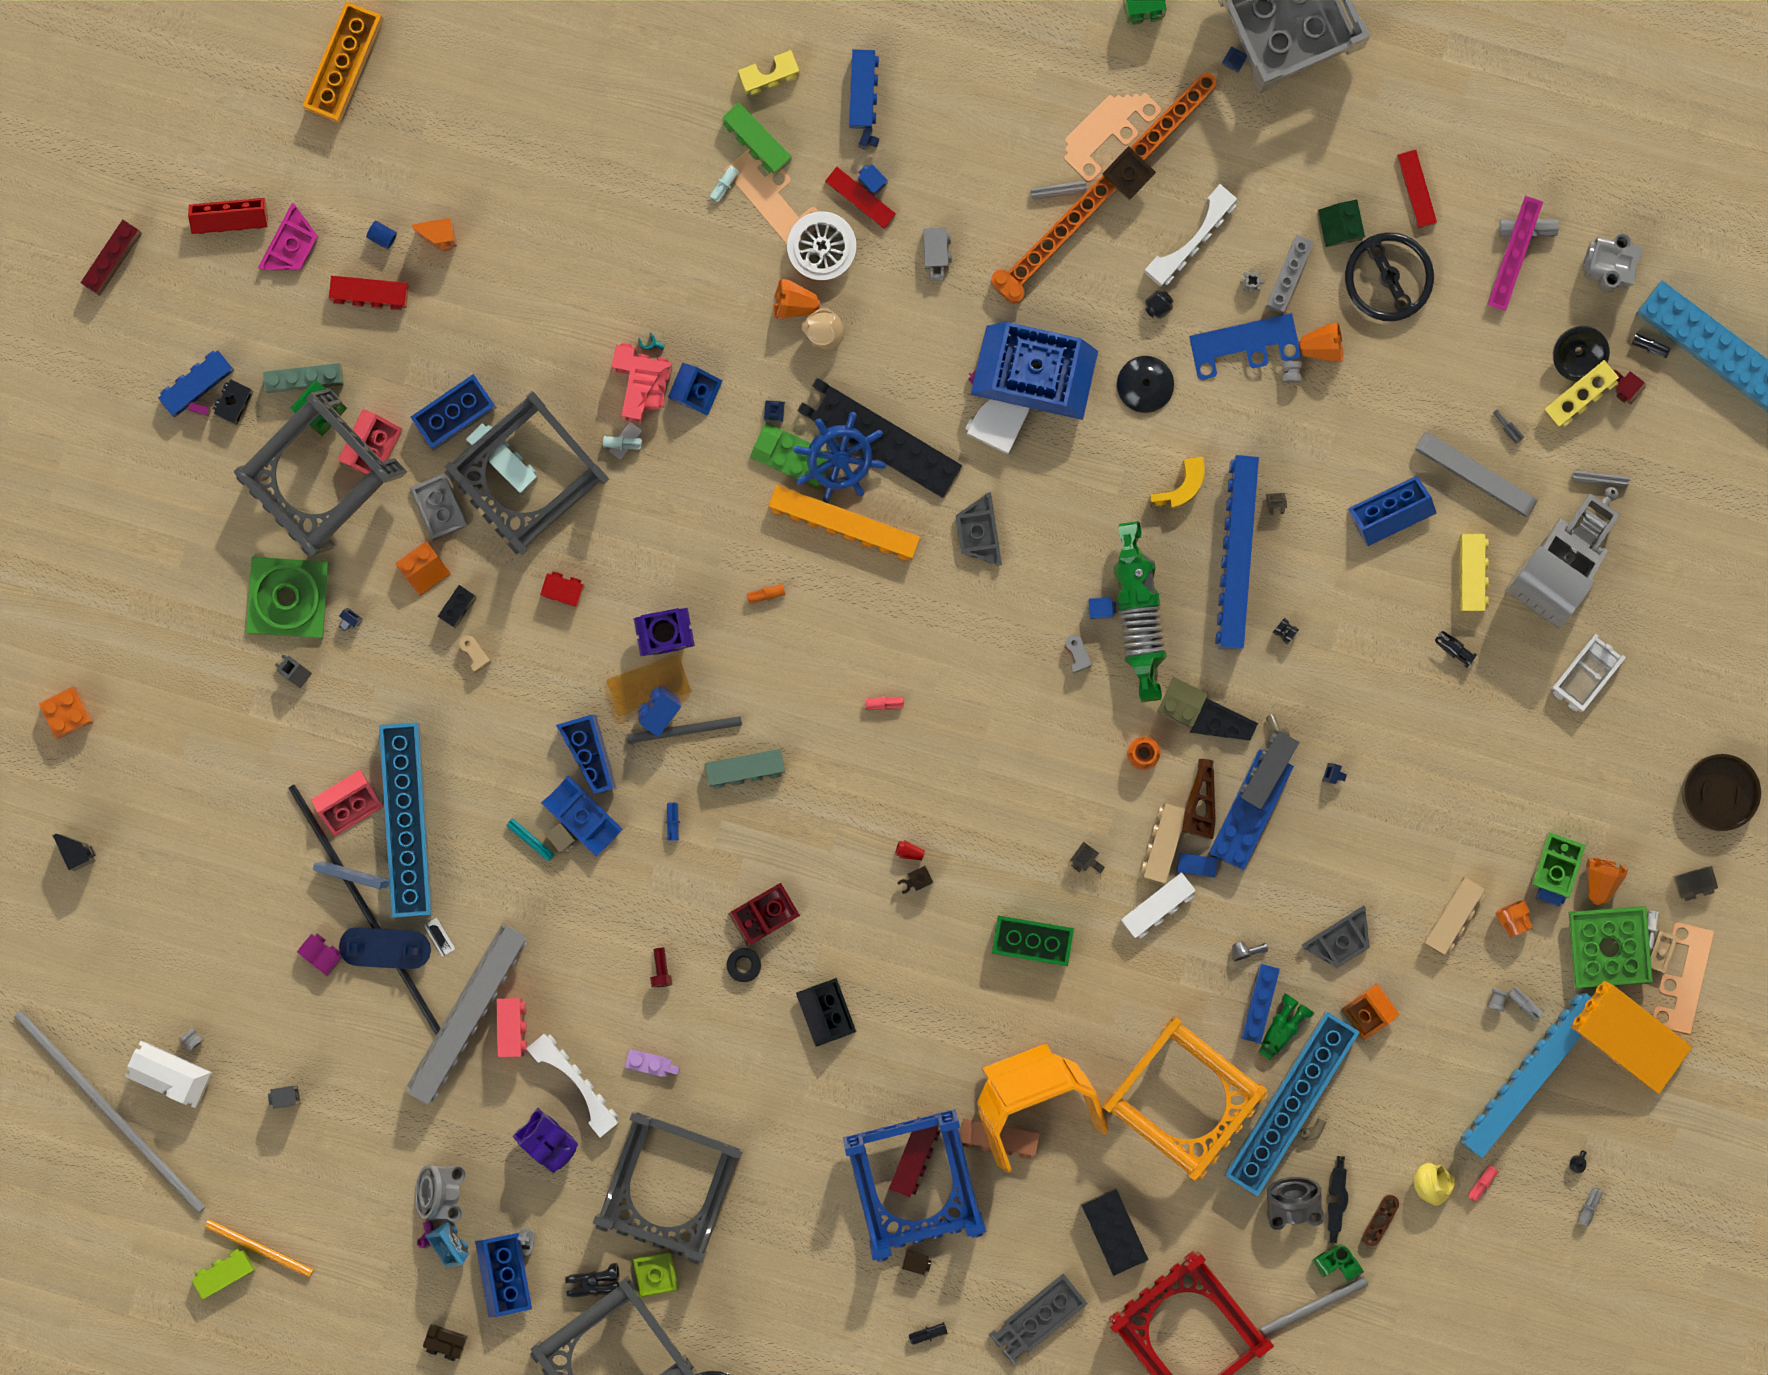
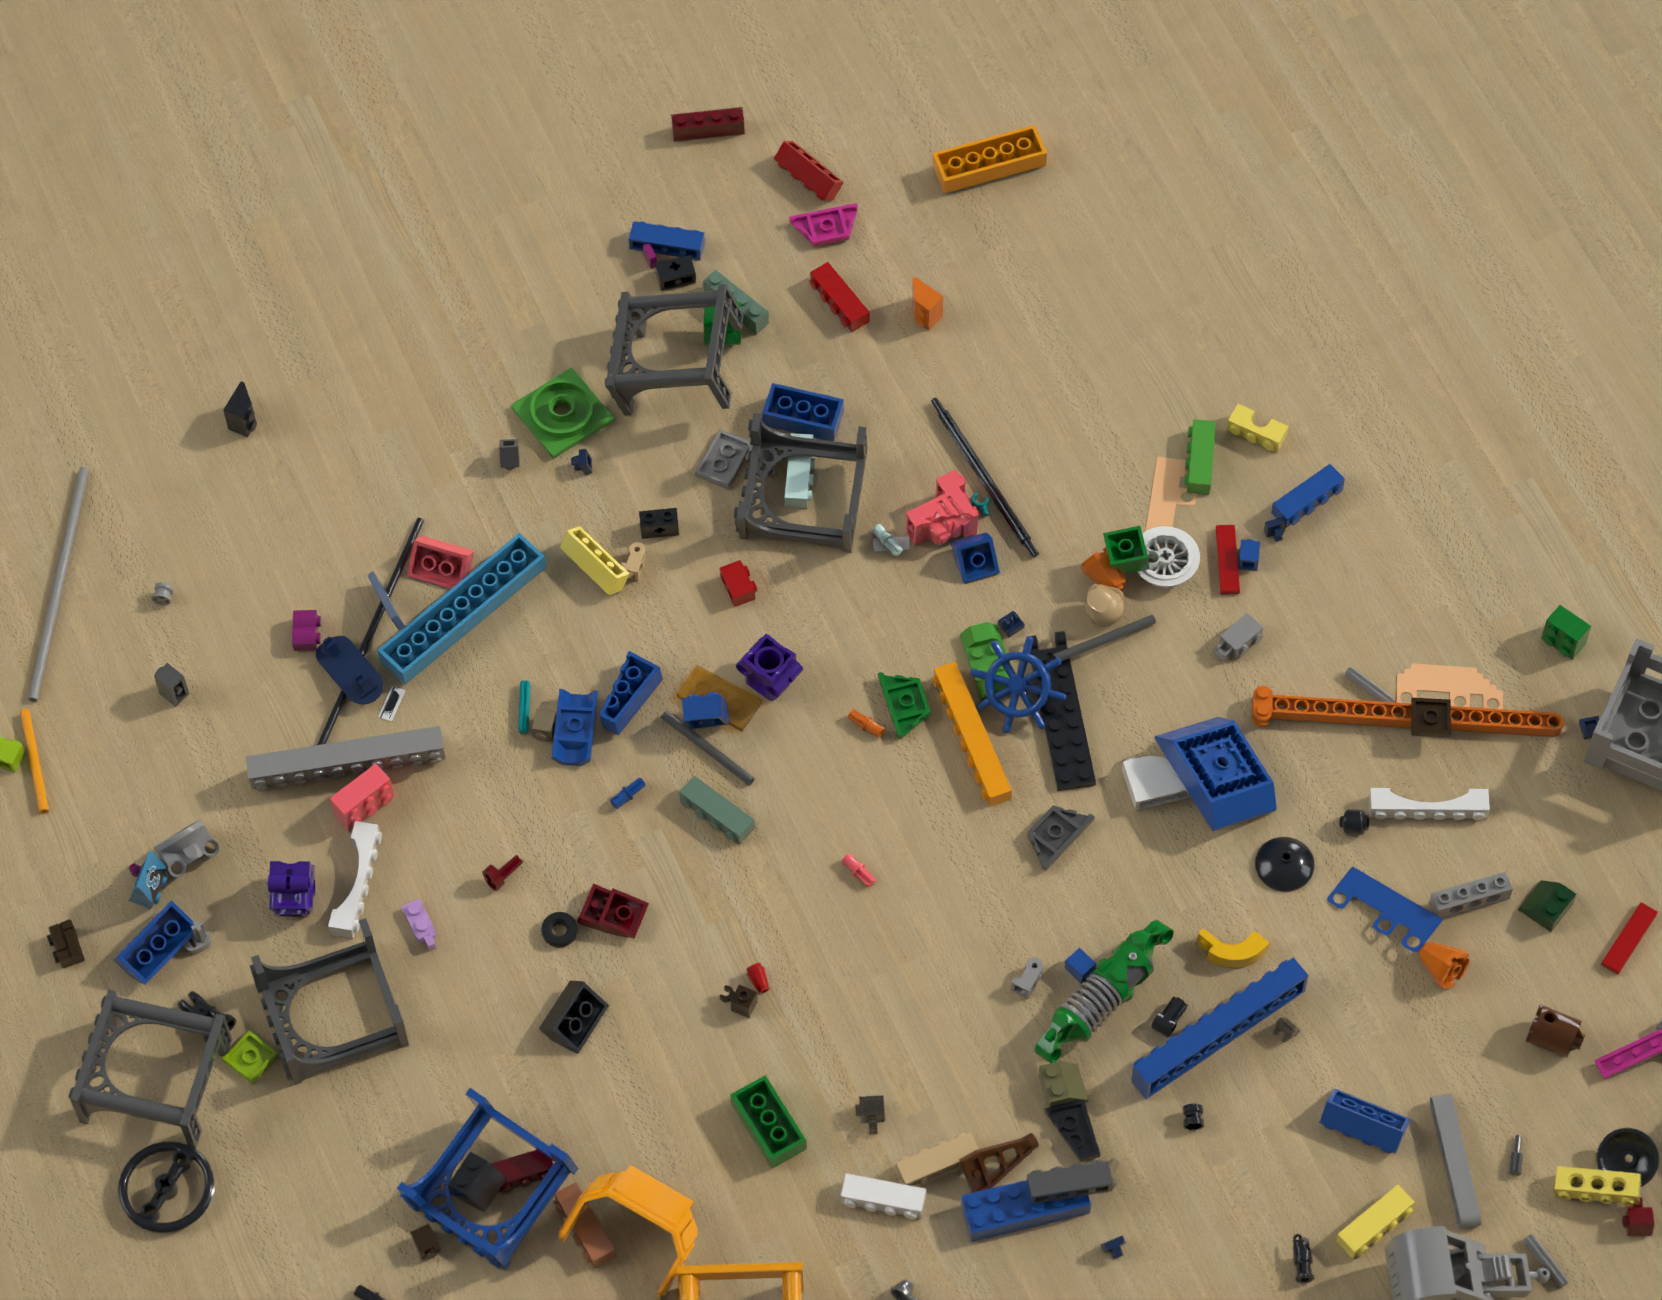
camera: 50 degrees right, 25 degrees down
(65, 713) = (343, 334): orange brick -> none
(168, 1074) = (121, 593): white brick -> none
(377, 434) = (739, 376): coral slope -> none
(381, 234) = (889, 274): blue piece -> none
(423, 568) = (667, 480): orange slope -> none
(449, 684) = (594, 560): none -> light yellow brick
(628, 319) = (984, 477): none -> black axle
(724, 183) = (1147, 462): light aqua axle -> none
(774, 549) = (905, 702): none -> green wing
(797, 275) = (1127, 549): none -> green slope
(850, 354) = (1105, 638): none -> dark grey piece
(907, 1192) = (476, 1182): none -> black slope
(1136, 760) = (996, 1098): orange piece -> none
(1197, 584) = (1167, 1020): none -> black piece
(1197, 865) = (943, 1202): blue tile -> none
(1251, 287) = (1438, 869): light grey gear -> none
(1292, 371) = (1399, 958): light grey wheel -> none
(1376, 241) = (1552, 936): black piece -> none
(1446, 314) = (1555, 1031): none -> reddish brown cylinder

